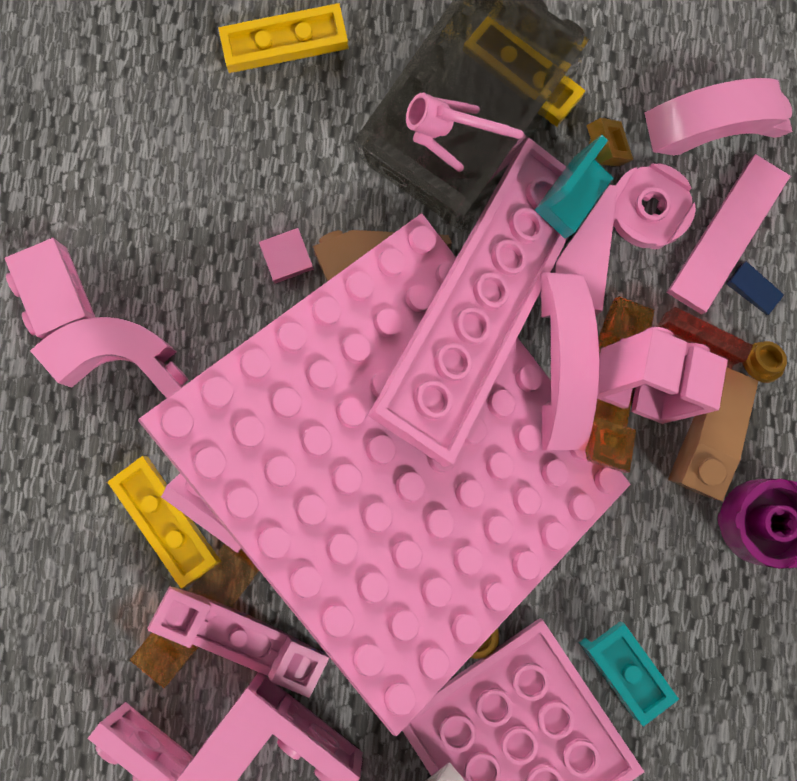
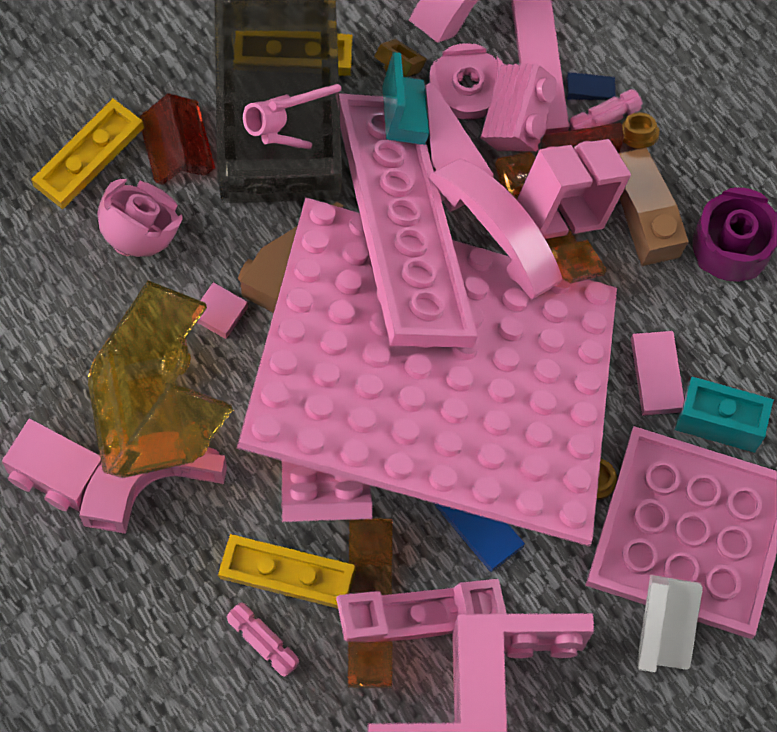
camera: 35 degrees left, 15 degrees down
(105, 560) = (262, 639): none -> bright pink axle
(154, 284) = (137, 409): none -> clear yellow windscreen
(273, 125) = (137, 218): none -> bright pink cylinder
(365, 75) = (176, 138): none -> clear red panel
(604, 585) = (657, 373): none -> bright pink tile
(675, 265) = (519, 108): none -> bright pink brick
(749, 322) = (608, 111): none -> bright pink axle

